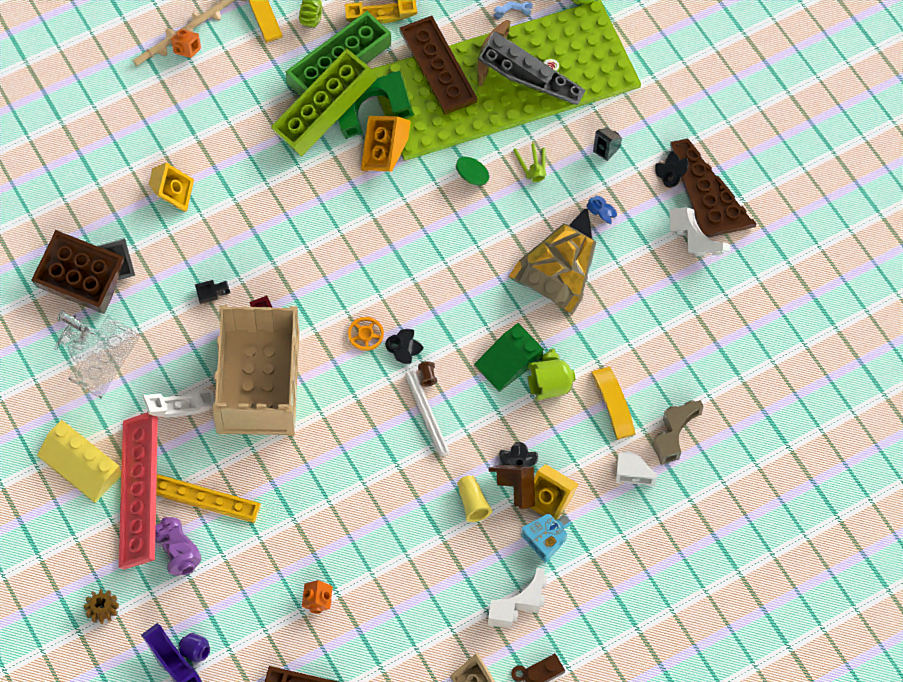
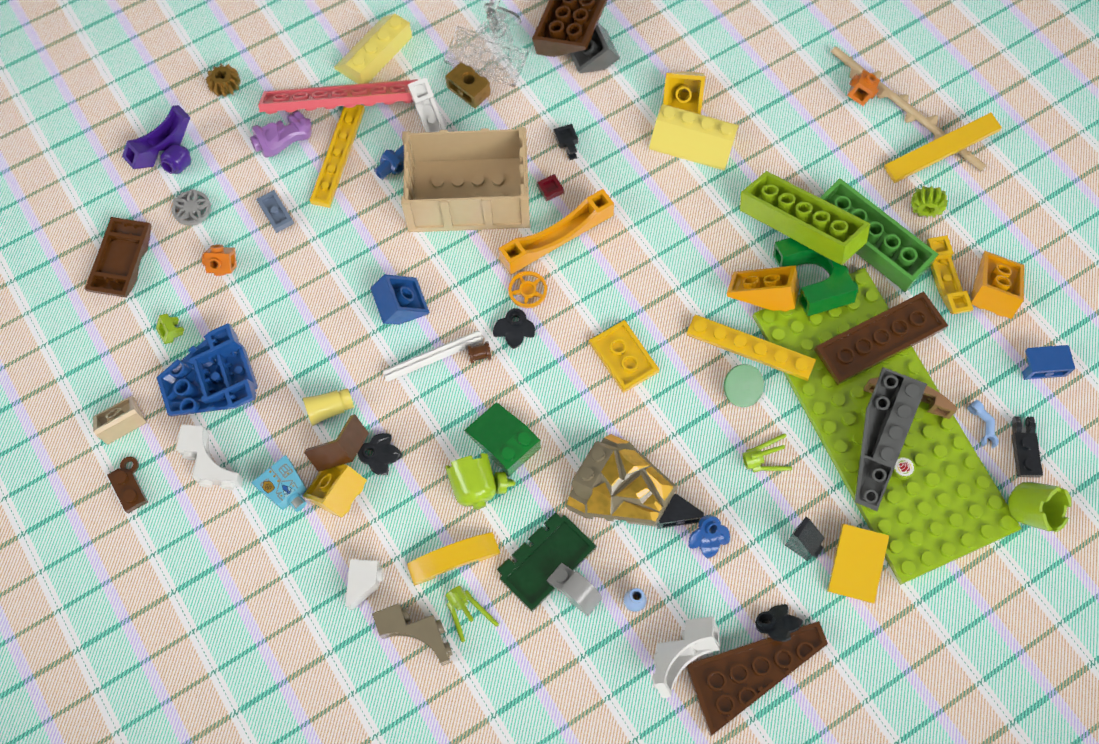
camera: 90 degrees right, 5 degrees up
(135, 383) = (468, 84): none -> pearl gold brick
(219, 444) = (390, 163): none -> blue axle
(221, 185) = (693, 137): none -> light yellow slope
(249, 633) = (191, 207): none -> light grey wheel
(263, 551) = (275, 211): none -> sand blue plate
(302, 286) = (530, 248): none -> light orange arch
(370, 439) = (399, 299): none -> blue slope
(385, 644) = (167, 329): none -> lime tile
(436, 261) = (624, 356): none -> yellow tile
(437, 162) = (751, 347): none -> yellow plate
(442, 598) = (210, 377): none -> blue wedge
(618, 331) = (535, 564): none -> dark green hinge
(625, 110) = (858, 563): none -> yellow tile
(644, 304) = (575, 588): none -> light grey brick
(649, 396) = (458, 599): none -> lime plant
(651, 266) = (632, 604): none -> light blue cone

